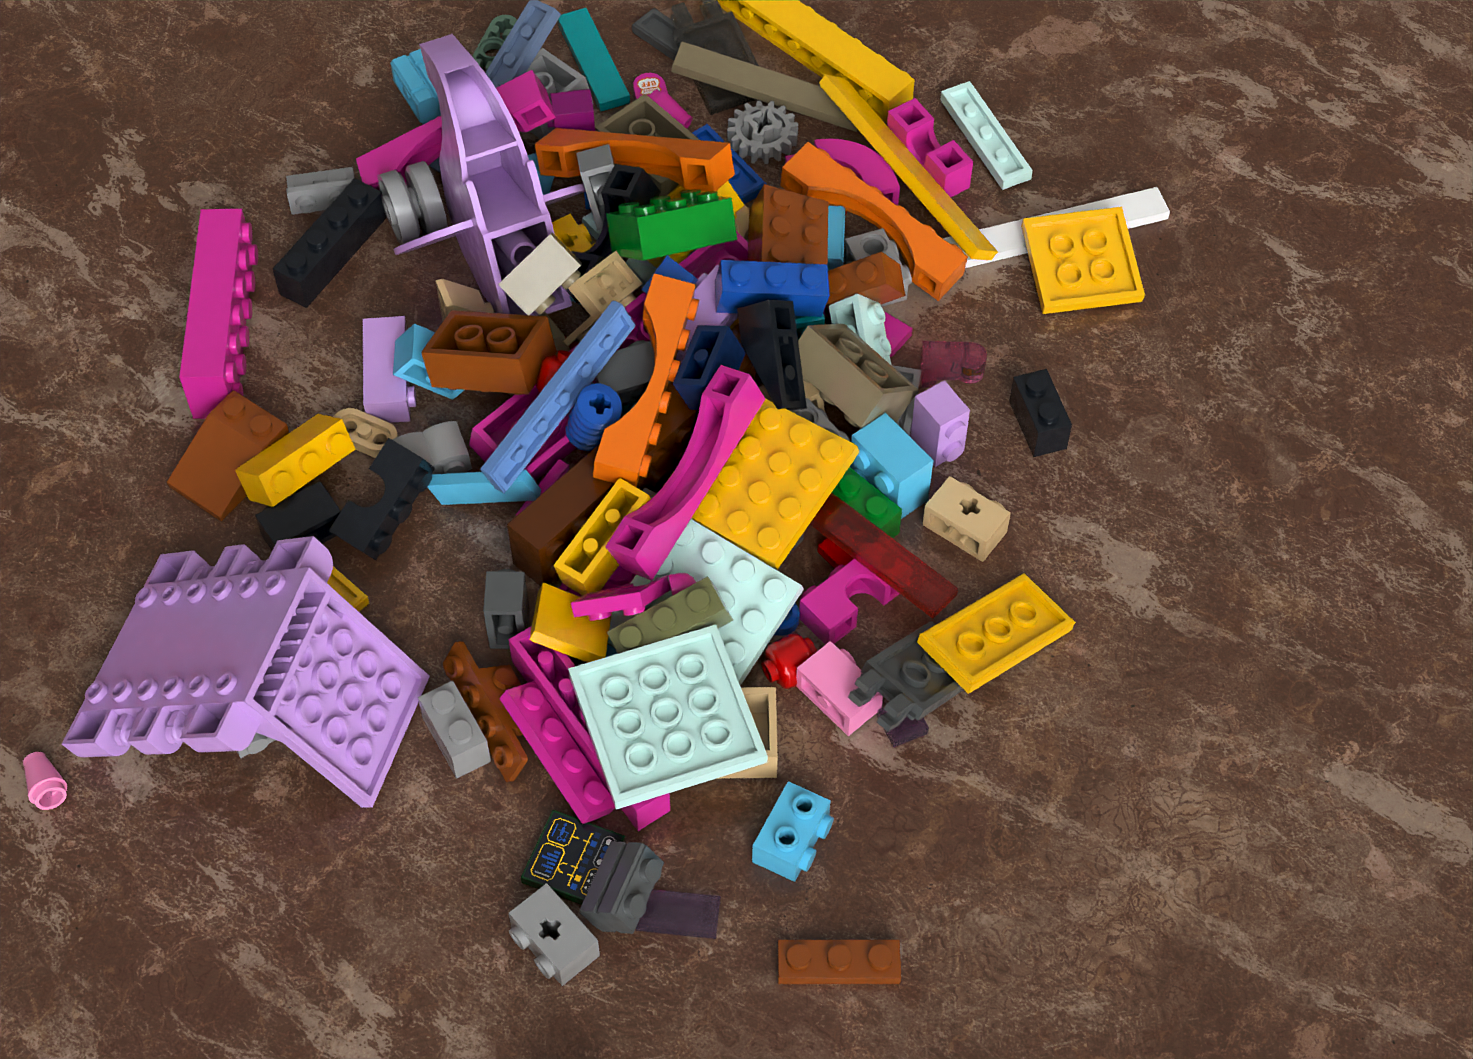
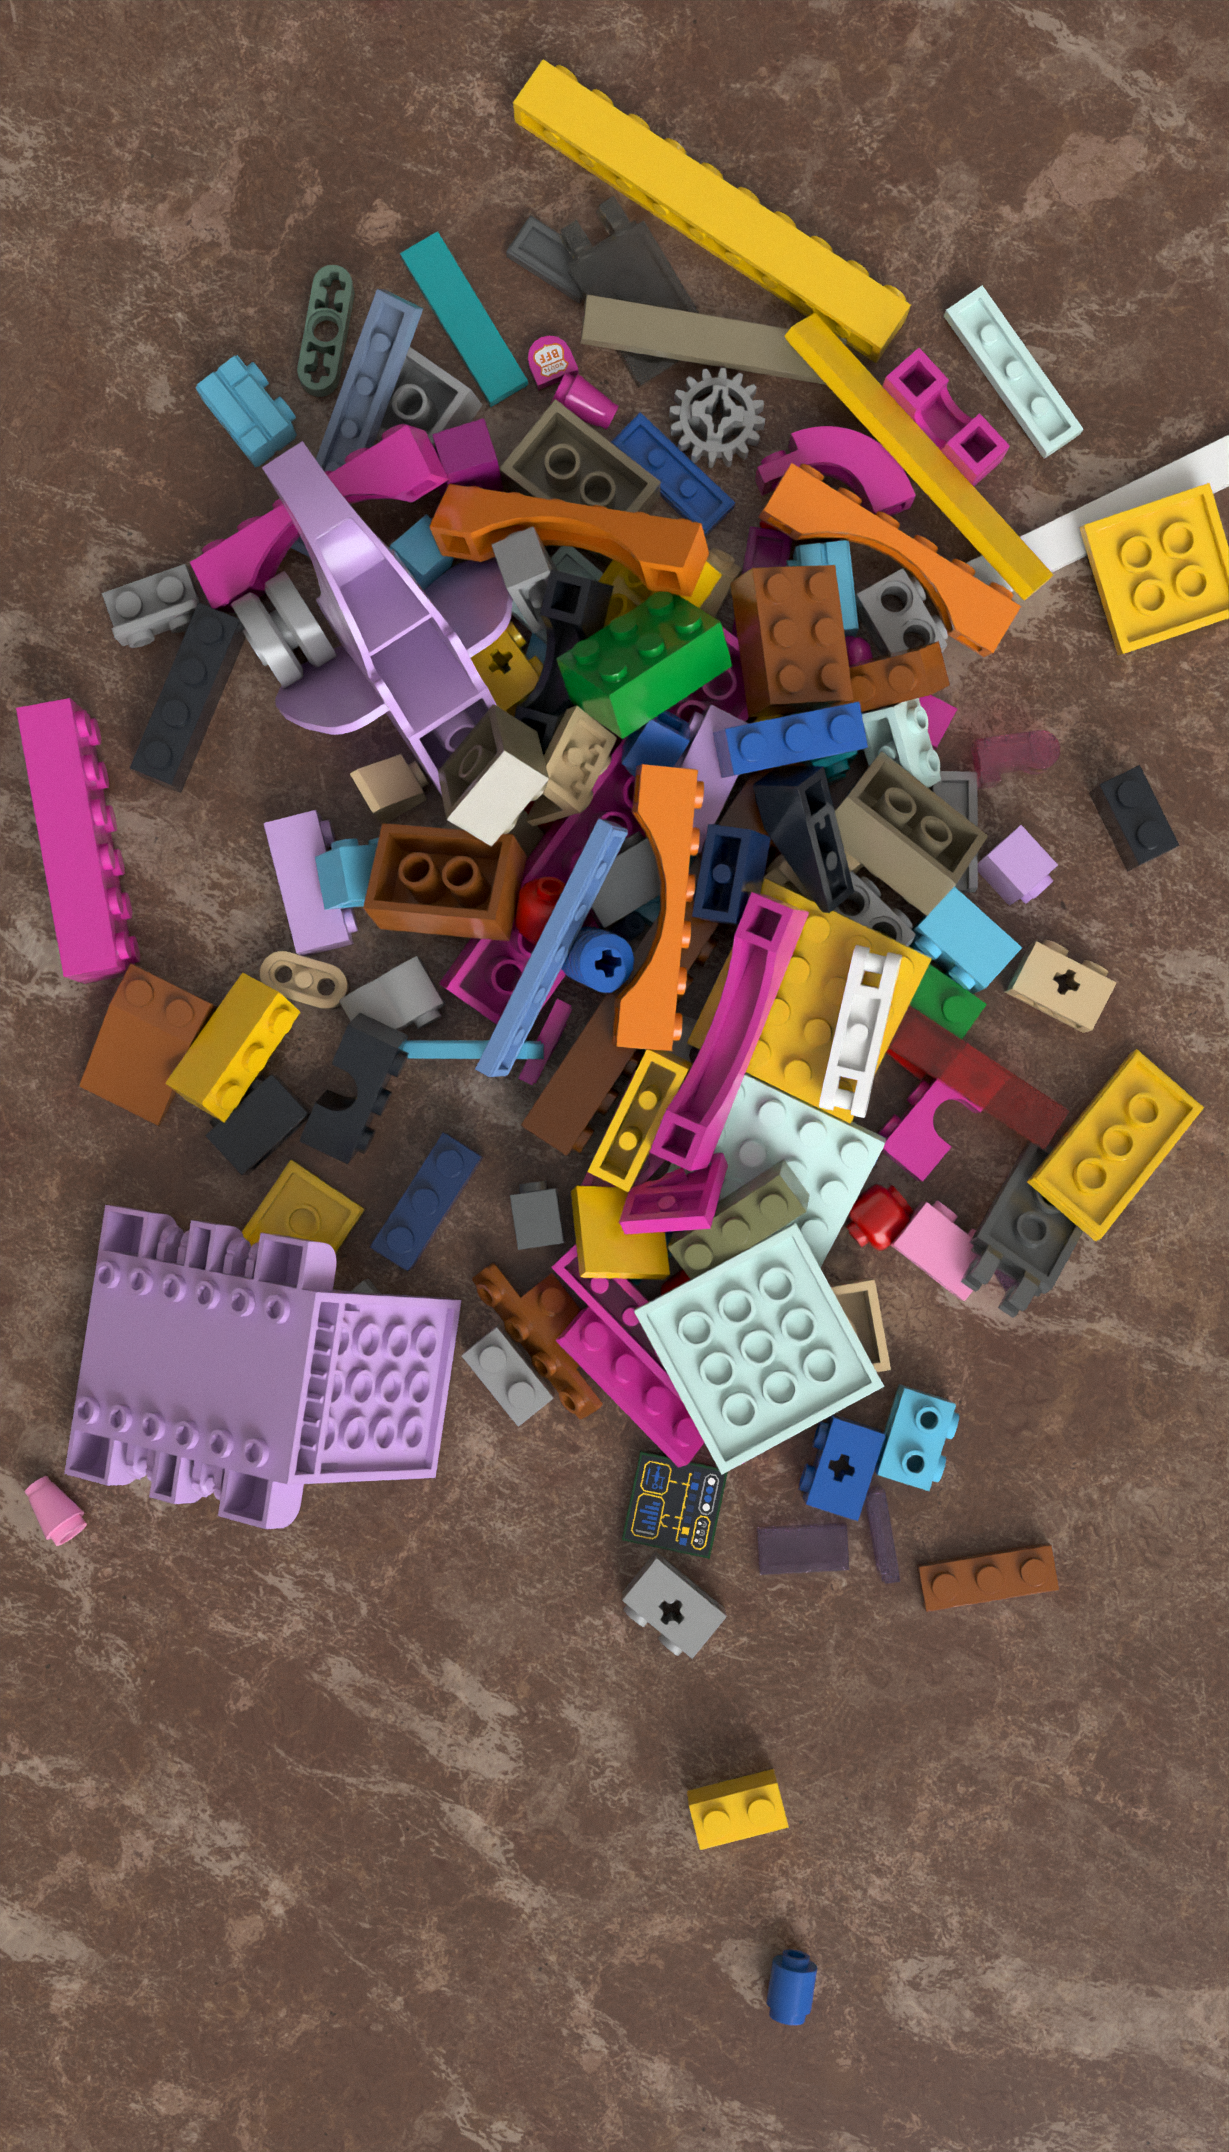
camera: 10 degrees left, 30 degrees up
(421, 591) = (426, 1201): none -> dark blue brick
(622, 887) = (739, 1542): dark grey brick -> none
(680, 582) = (744, 1168): dark pink hinge -> none
(723, 865) = (848, 1490): none -> blue brick
(749, 906) = (882, 1535): none -> clear purple tile
(790, 485) = (860, 1031): none -> white plate

